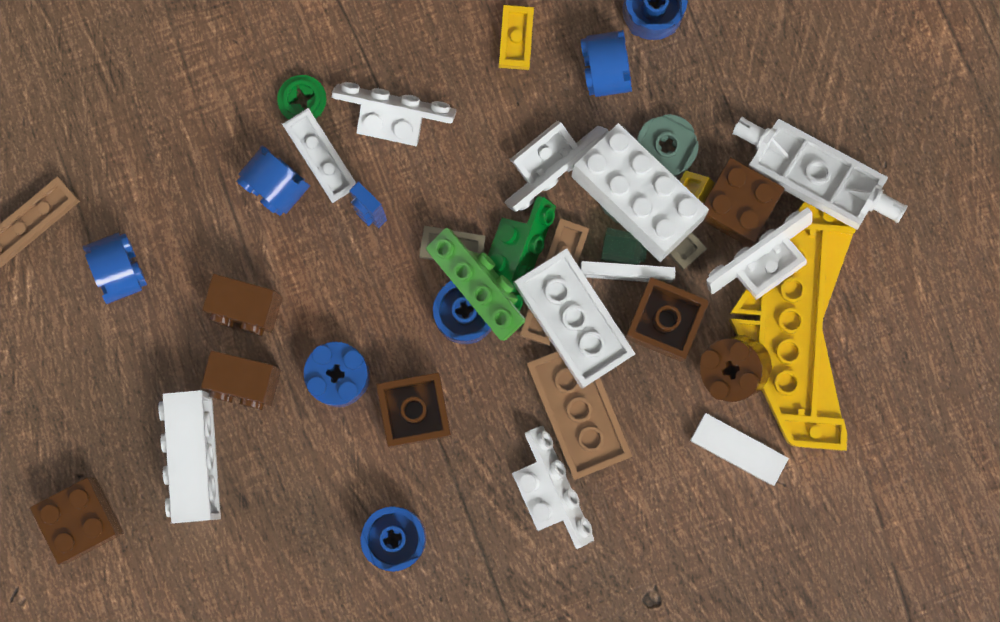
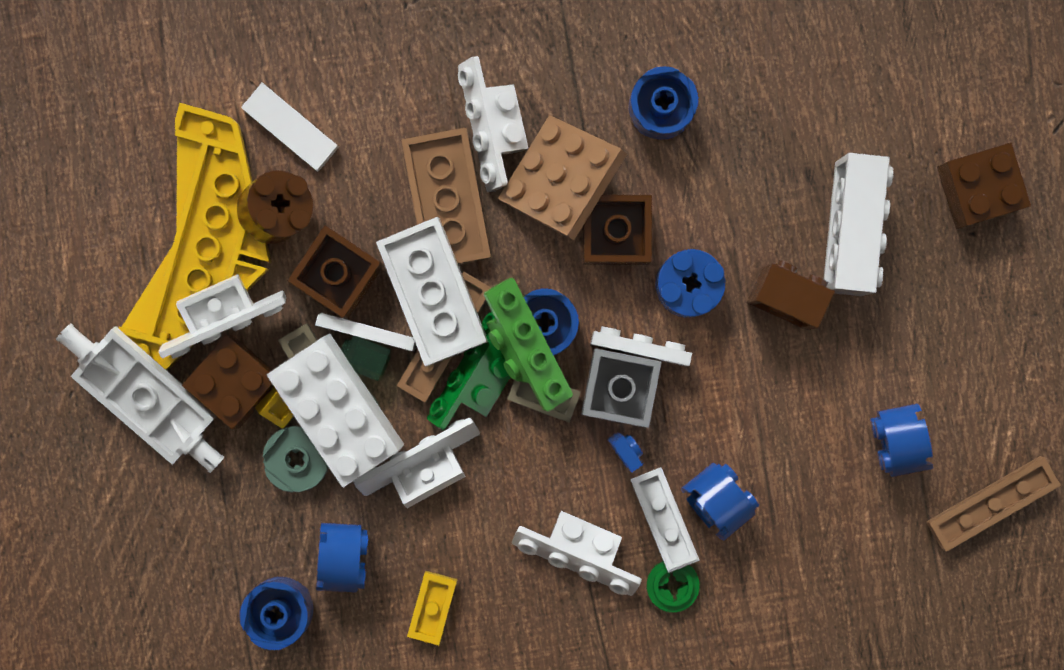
camera: 165 degrees left, 5 degrees up
(242, 303) = (776, 374): reddish brown brick -> none
(371, 308) = (641, 346): none -> white plate
(382, 265) = (621, 388): none -> light grey brick
(474, 448) = (562, 177): none -> medium nougat plate

